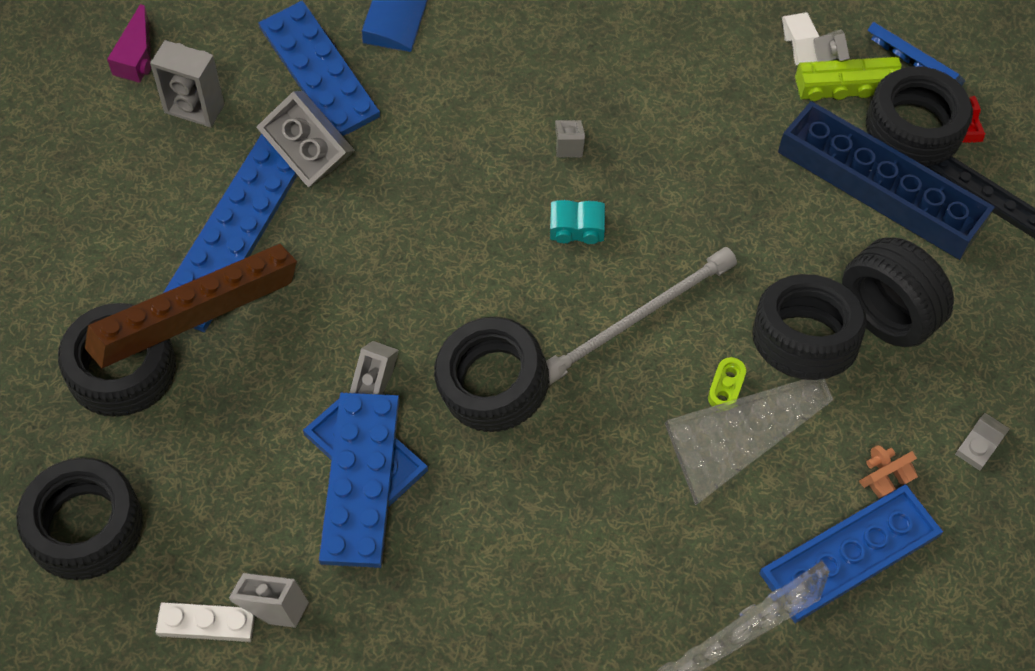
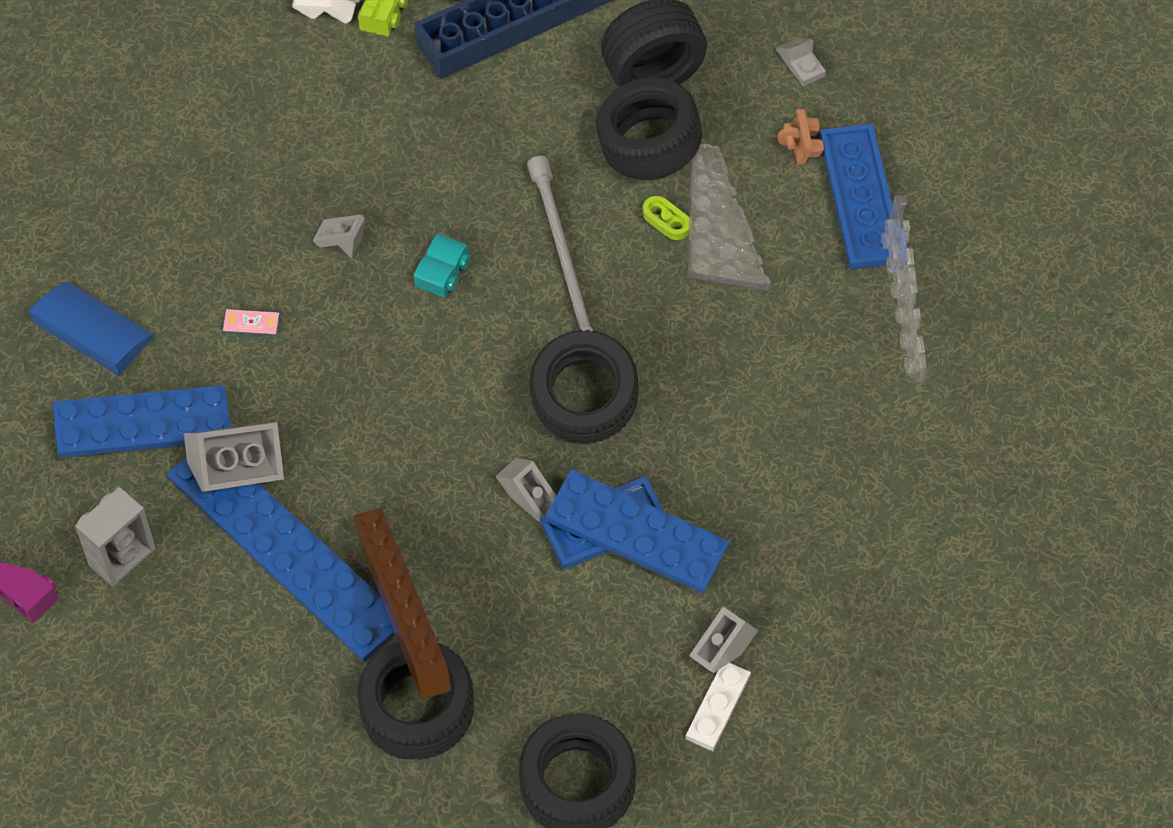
camera: 65 degrees left, 0 degrees up
(452, 110) = (251, 324): none -> tile

